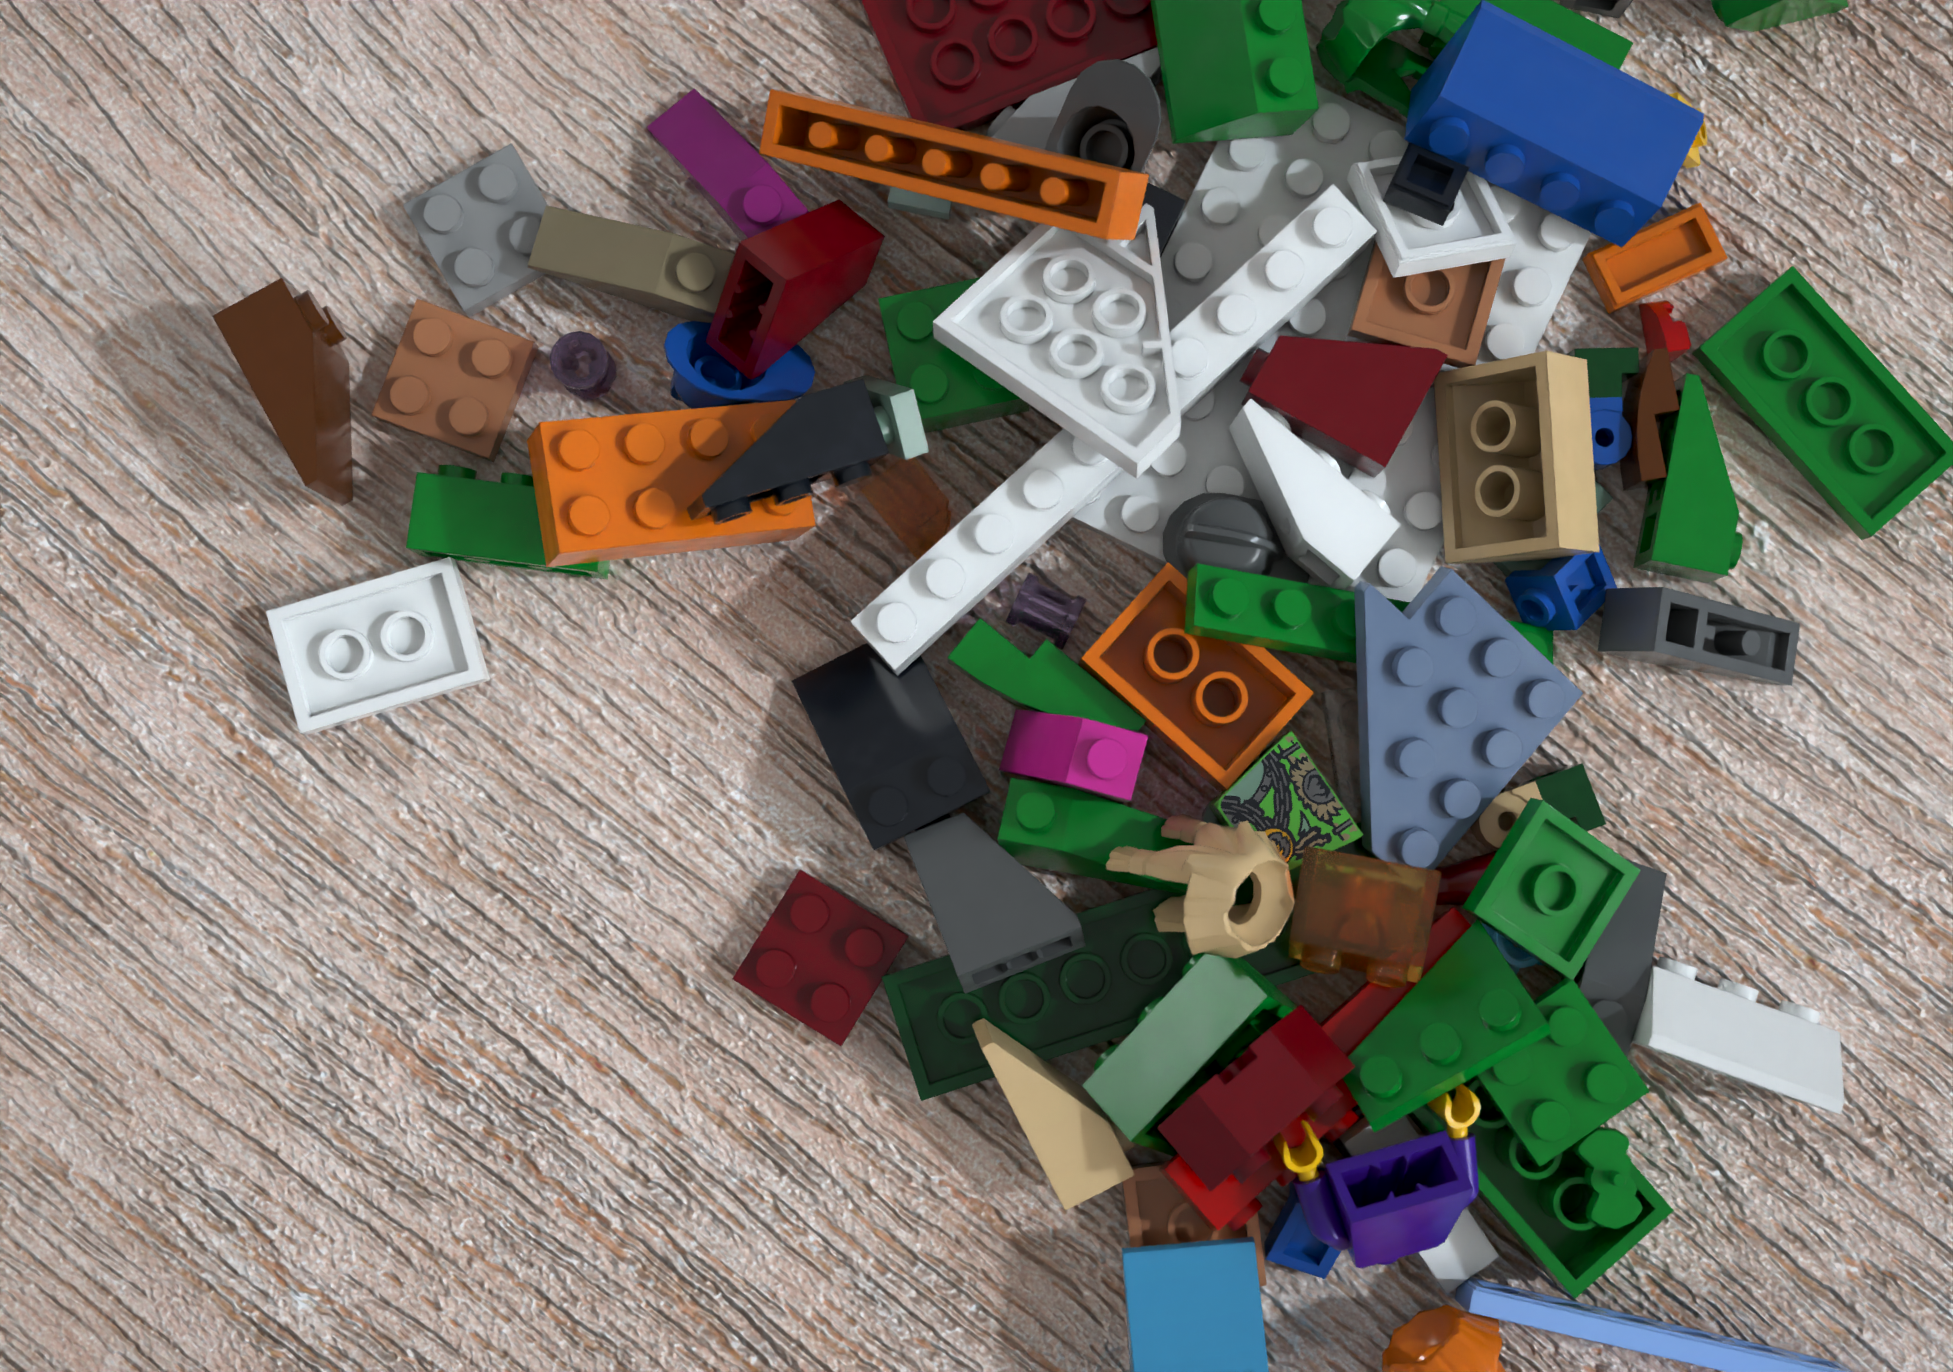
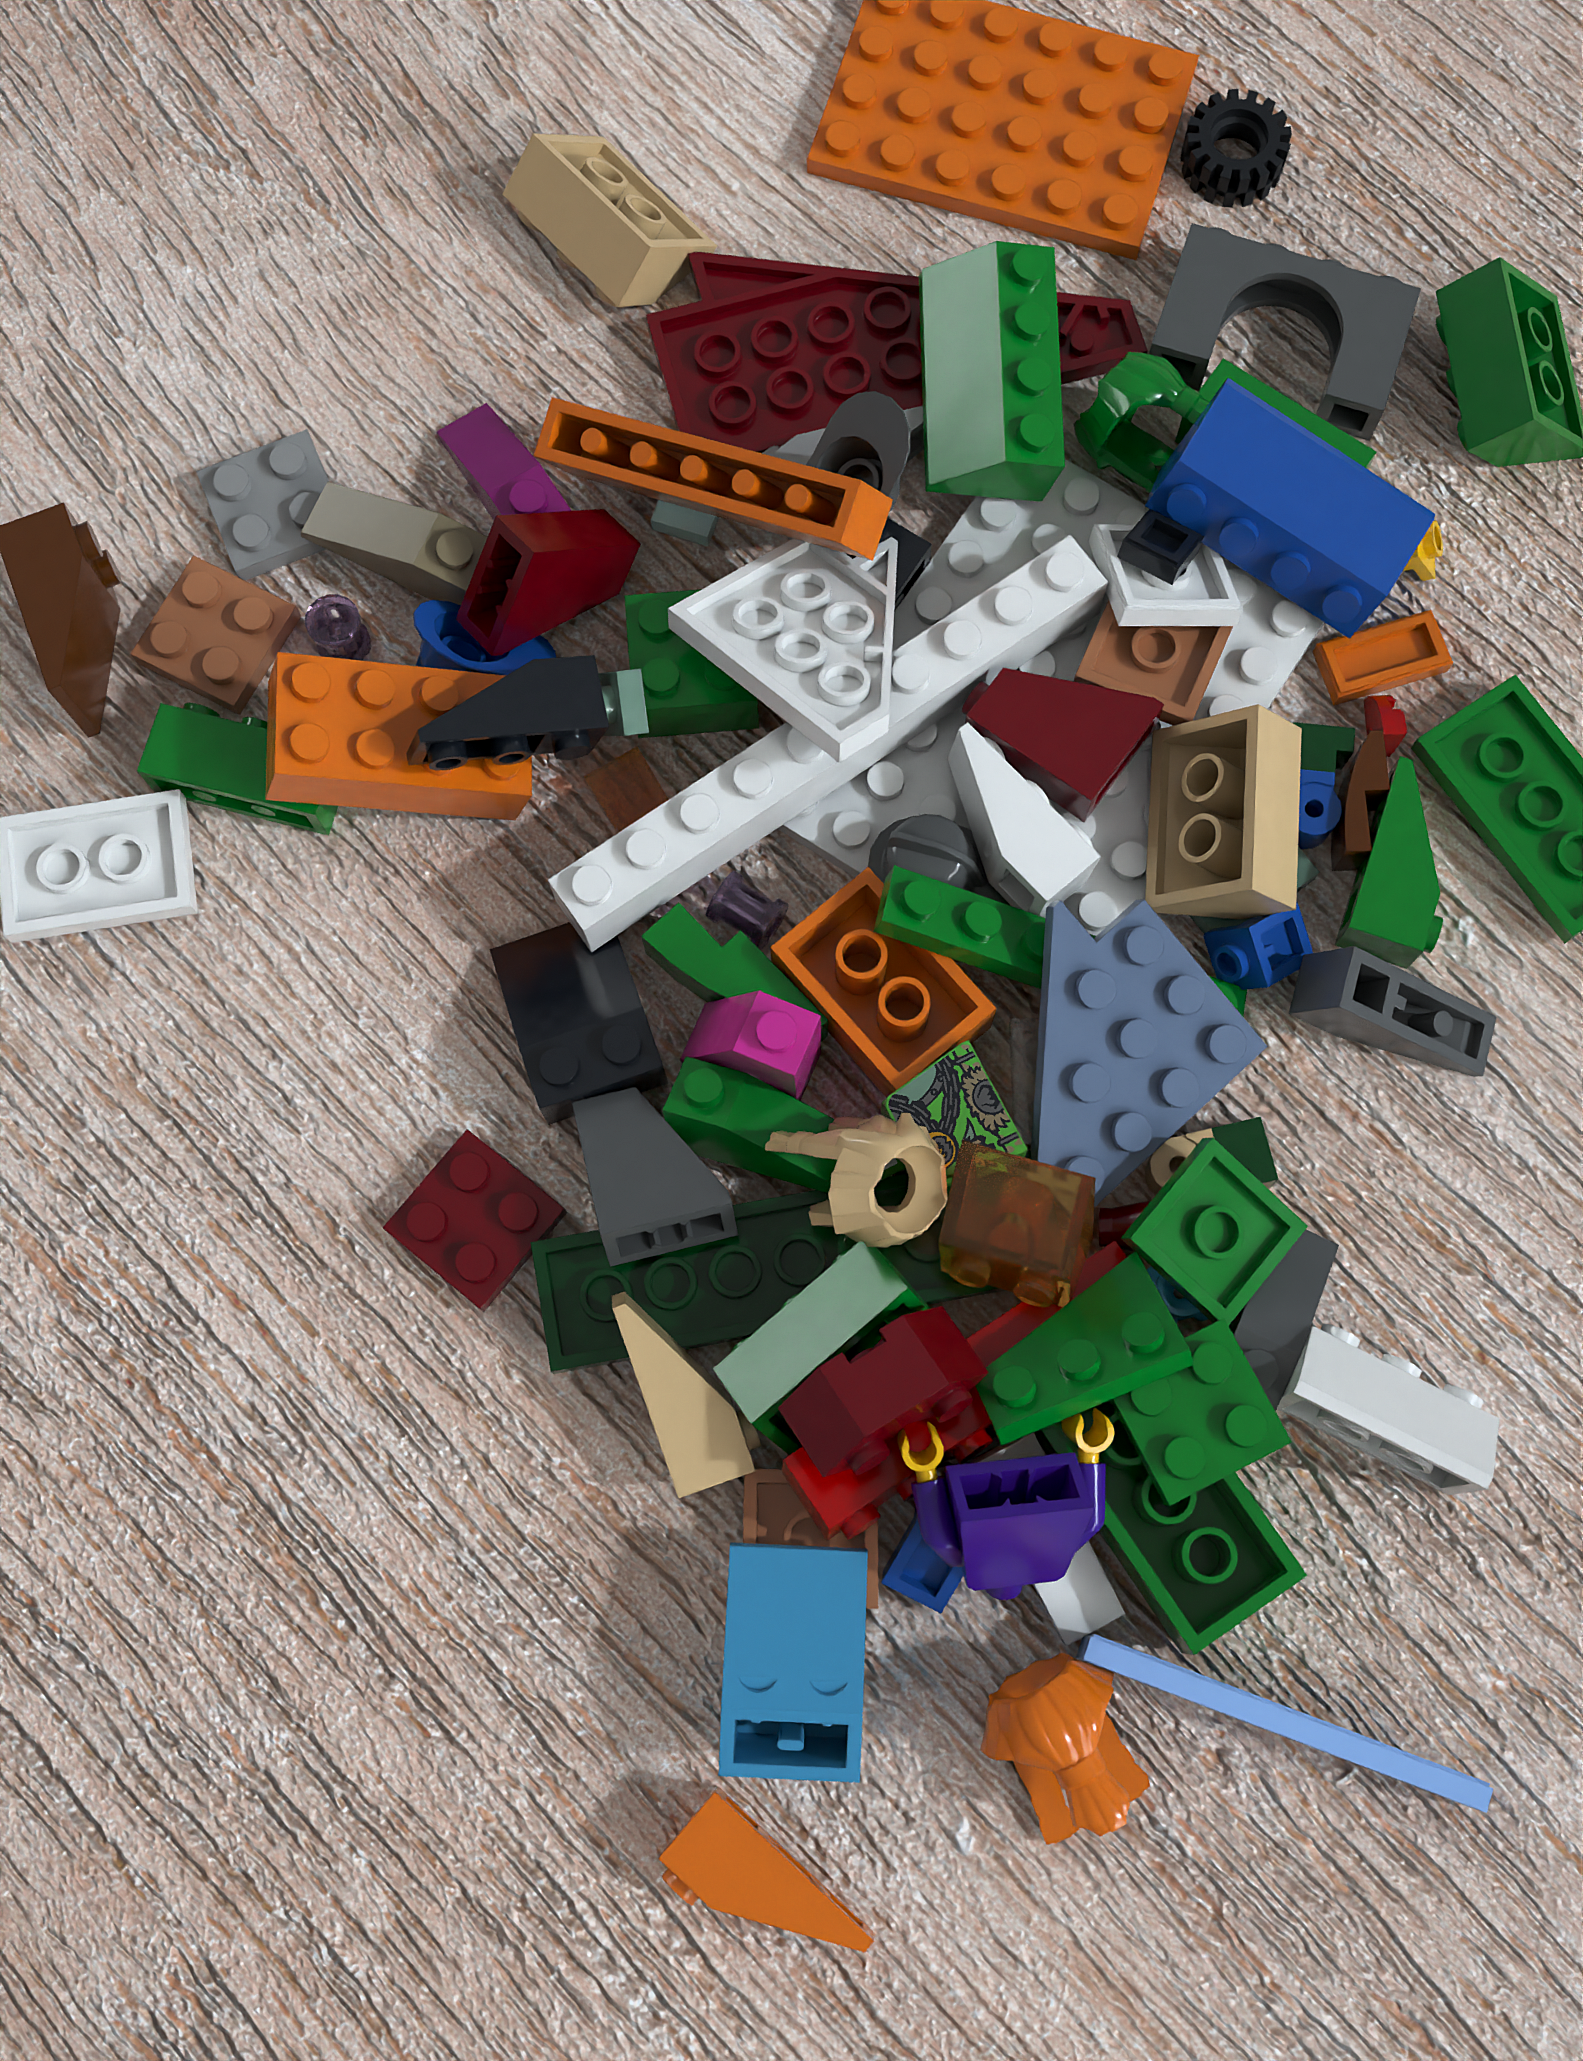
camera: 10 degrees right, 10 degrees down
(1609, 1178) = (1241, 1529): green piece -> none

